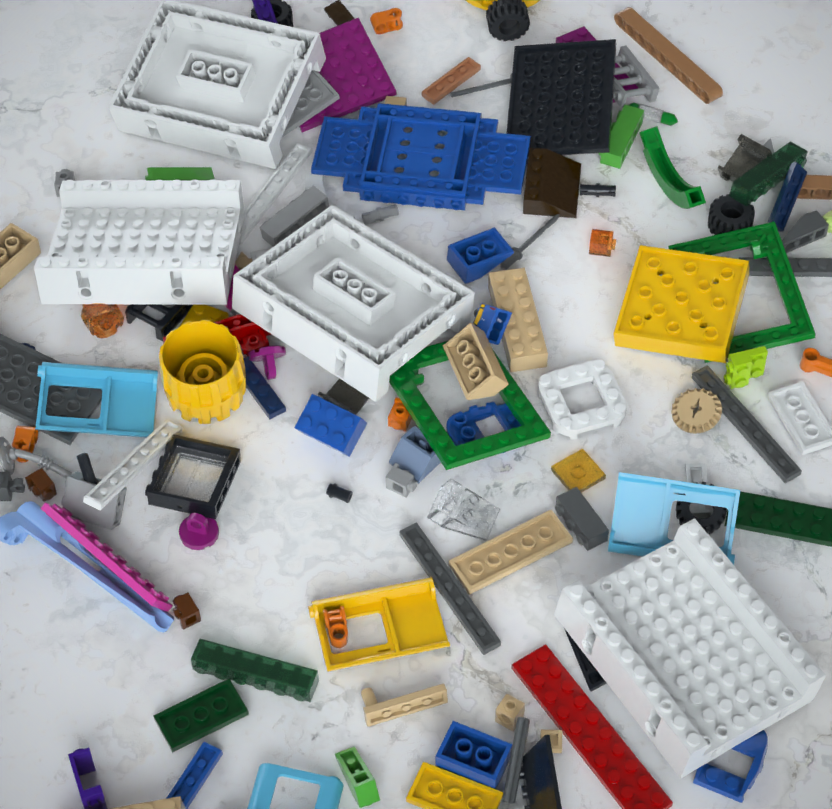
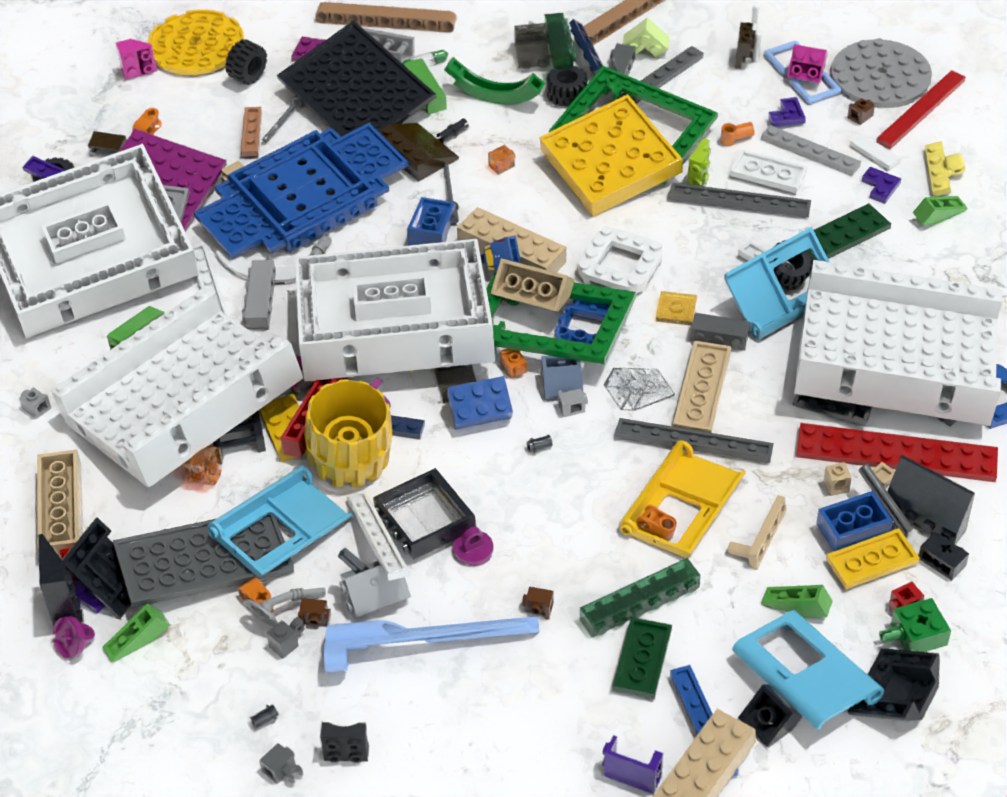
camera: 45 degrees left, 5 degrees down
(104, 553) = (433, 612): dark pink plate -> none
(703, 420) = (695, 223): tan gear -> none

